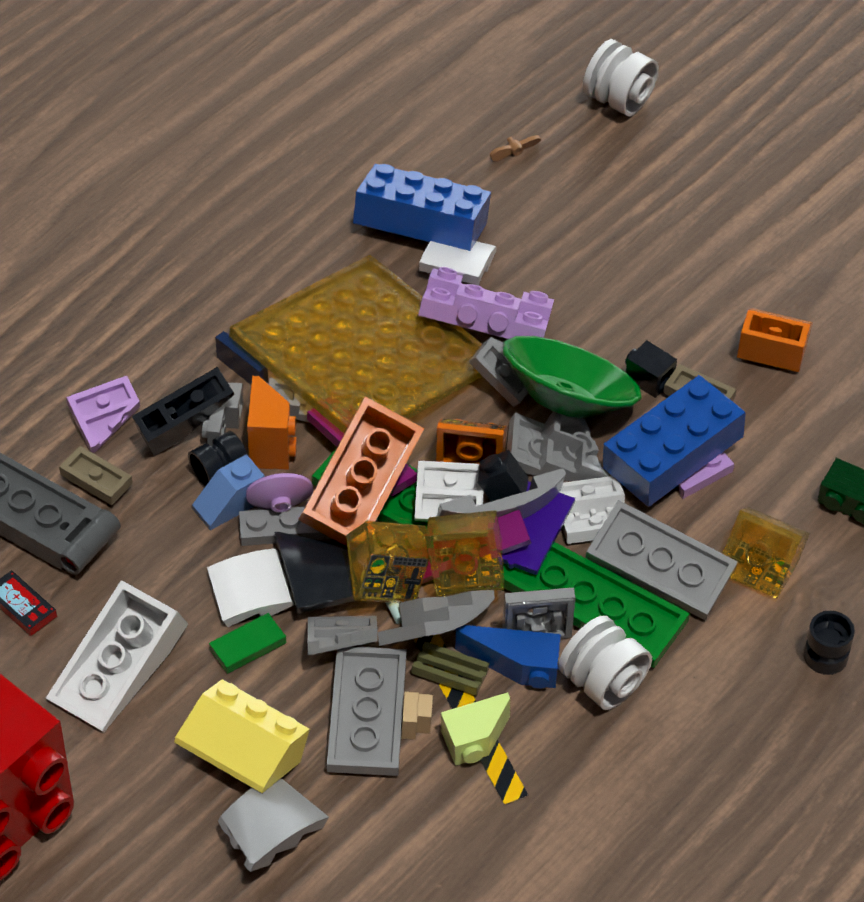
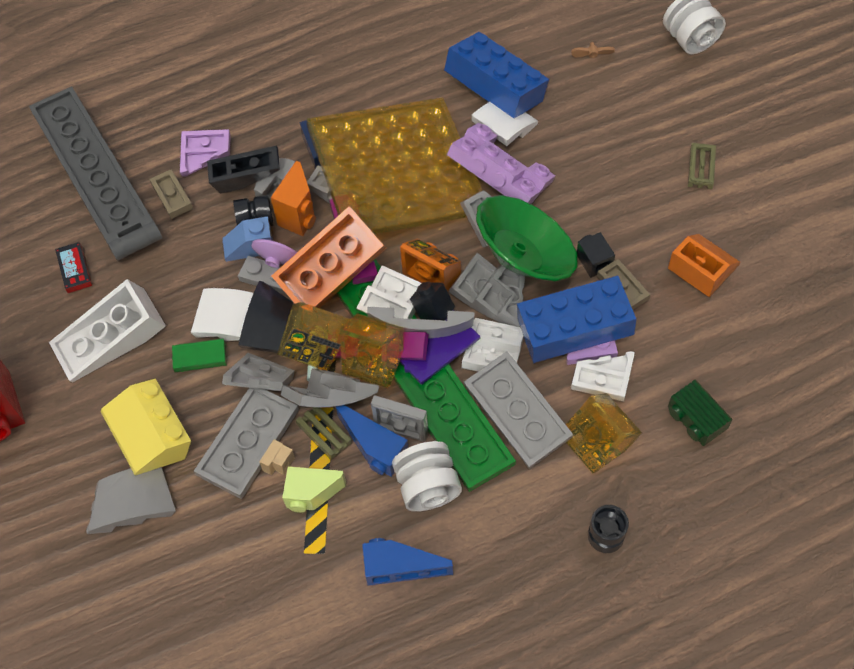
camera: 30 degrees right, 10 degrees up
(624, 764) = (397, 562): none -> blue slope
(717, 251) = (700, 181): none -> olive tile
(732, 492) = (604, 376): none -> white wing

